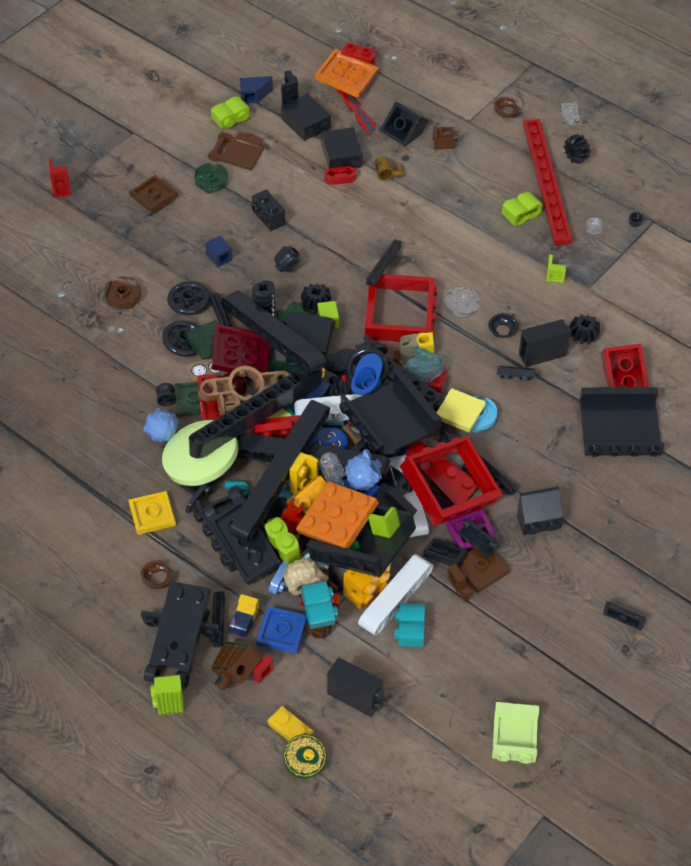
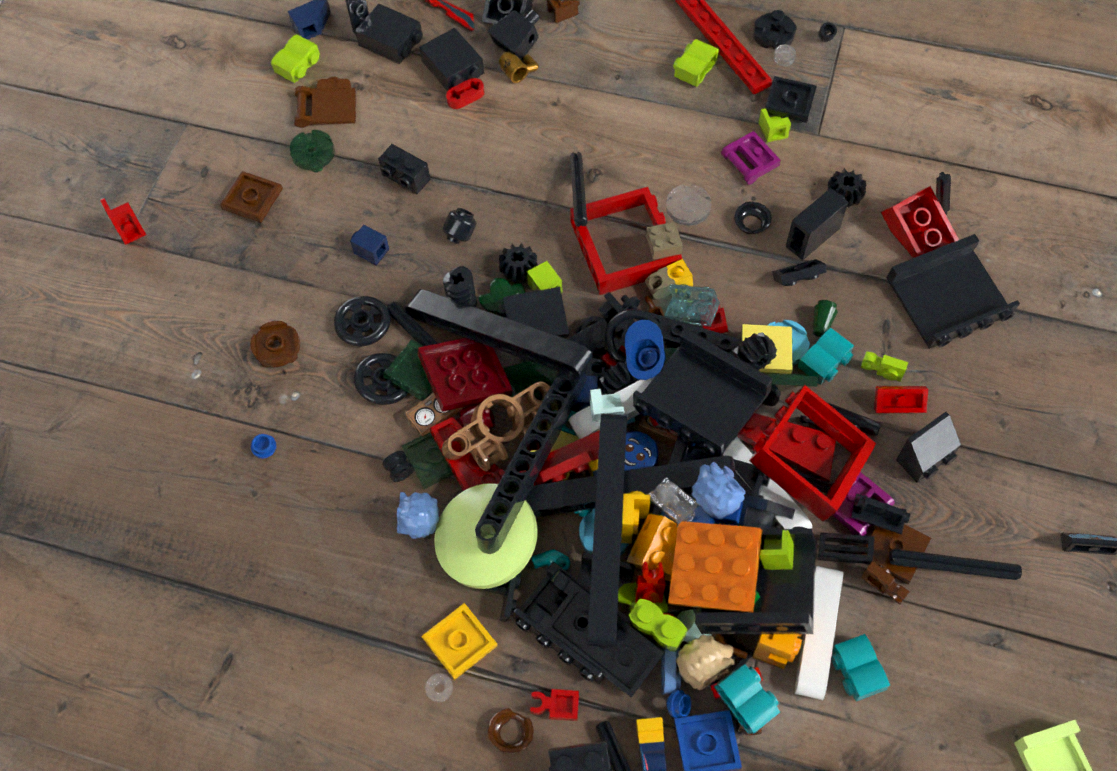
camera: 20 degrees left, 10 degrees up
(83, 351) = (263, 446): none -> blue plate
(124, 529) = (433, 681): none -> clear plate
(196, 572) = (561, 704): none -> red plate
(279, 599) = (678, 704): none -> blue plate
(325, 399) = (604, 404): none -> light aqua panel
(397, 145) = (515, 33): none -> black torso
(424, 315) = (664, 240): none -> dark tan piece
(445, 403) = (756, 350): none -> black gear
(460, 432) = (793, 379): none -> clear green tile
(502, 431) = (826, 356): none -> teal brick
(516, 590) = (955, 564): none -> black axle
(517, 405) = (824, 316): none -> dark green cone
(531, 283) = (756, 152): none -> magenta plate
(540, 476) = (901, 399): none -> red plate
(543, 453) = (888, 367): none -> lime plate
(579, 256) = (790, 99): none -> black plate
(601, 199) = (776, 21): none -> black plate
(648, 353) = (943, 189): none -> black axle

